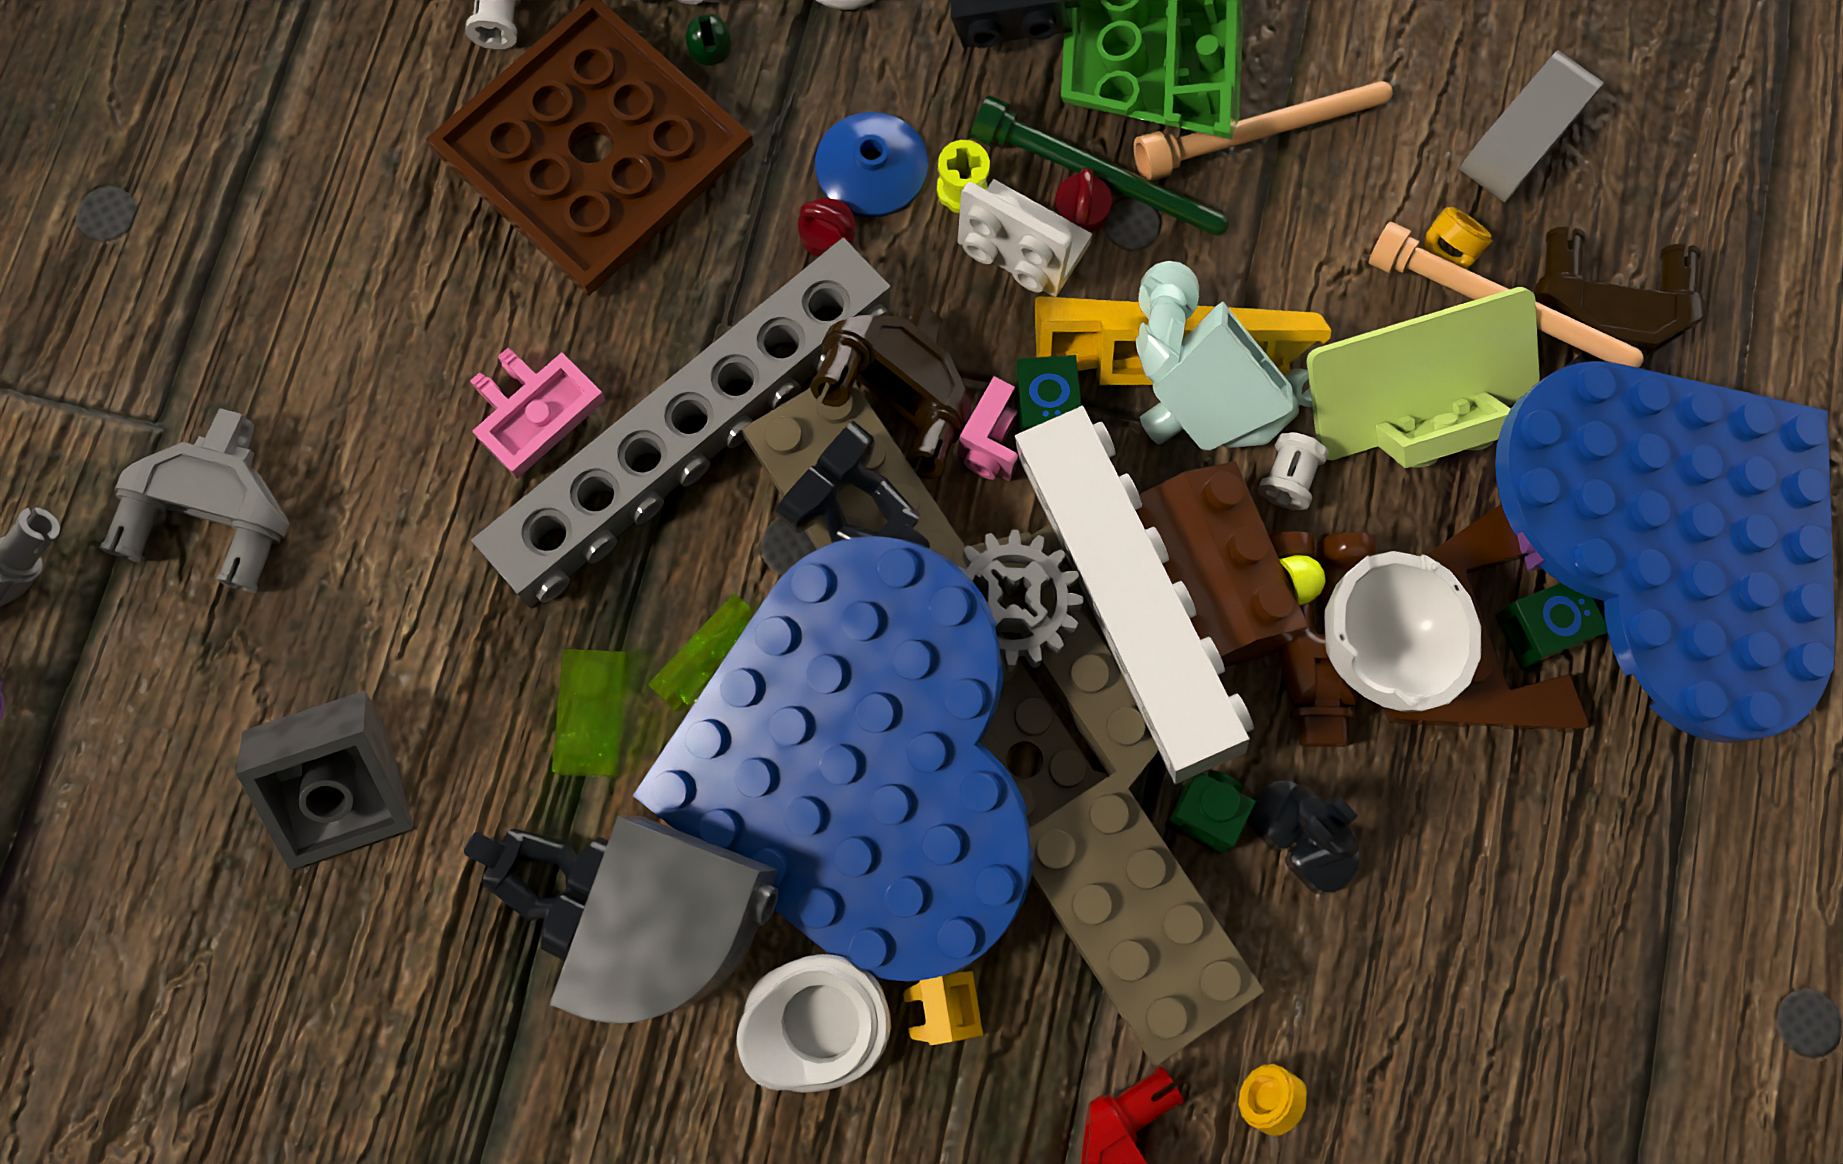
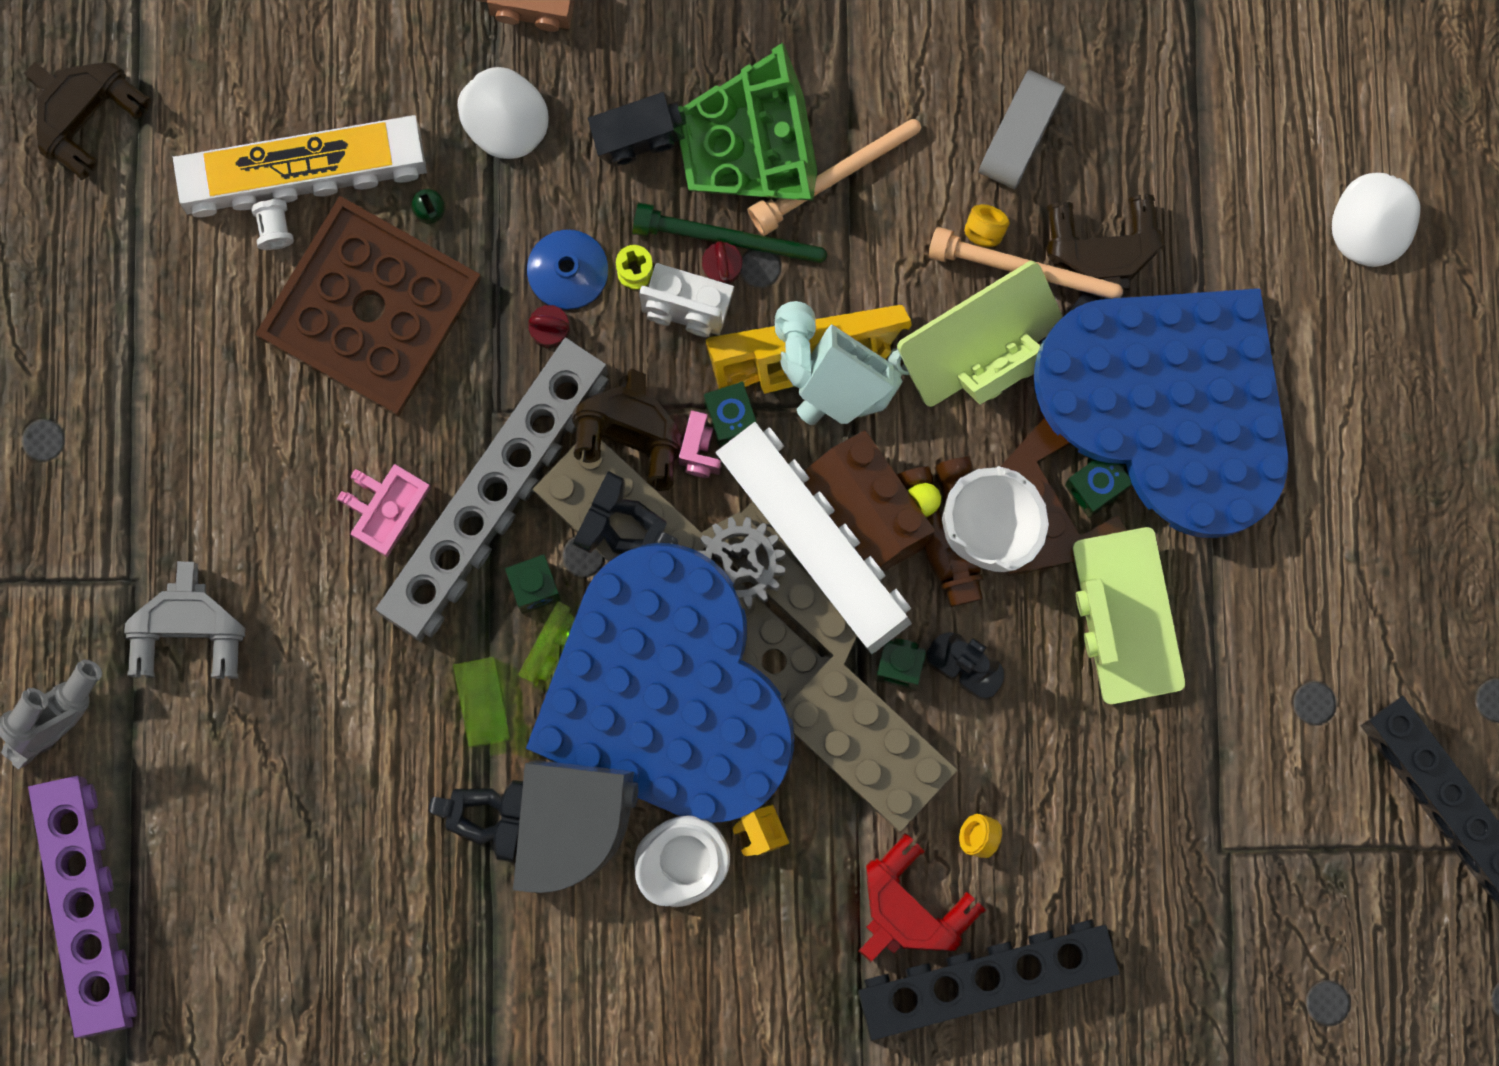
camera: 10 degrees left, 5 degrees up
(324, 780) = (324, 788): flat silver slope -> none
(706, 562) = (533, 584): none -> dark green brick
(1293, 451) = (907, 422): white bush -> none
(1560, 824) = (1127, 615): none -> yellowish green bracket

